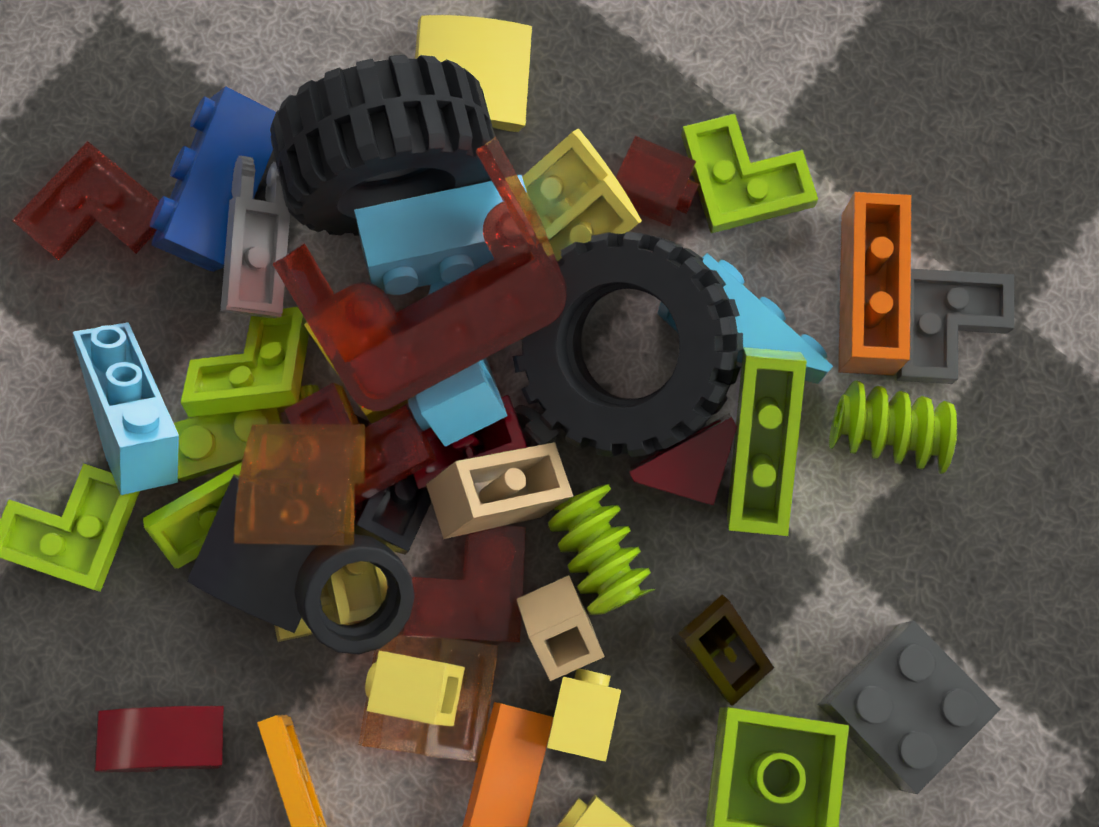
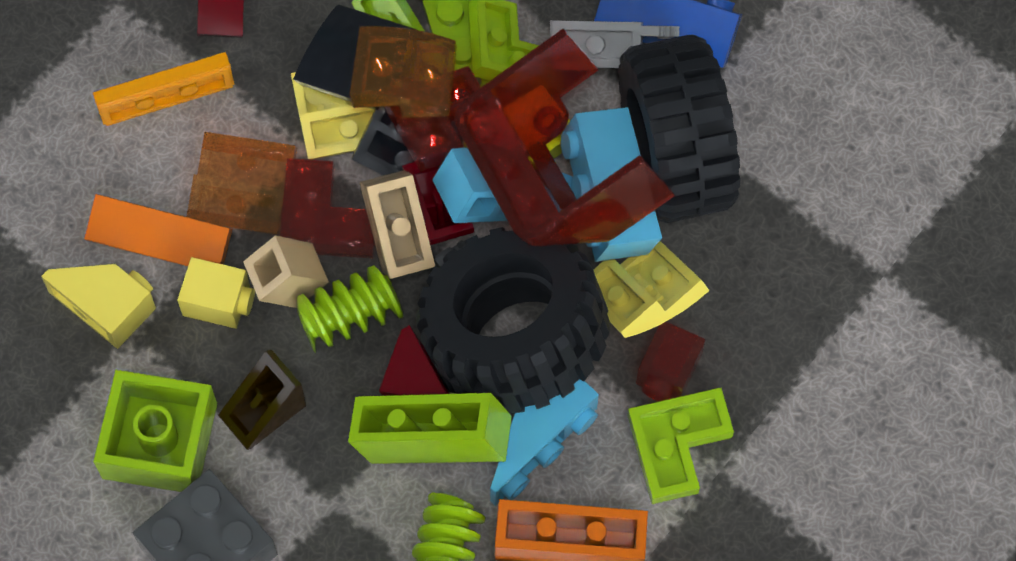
camera: 90 degrees right, 10 degrees down
(377, 628) = (286, 117): black tyre -> none
(414, 688) = (243, 162): light yellow brick -> none
(492, 52) = (775, 221): light yellow slope -> none

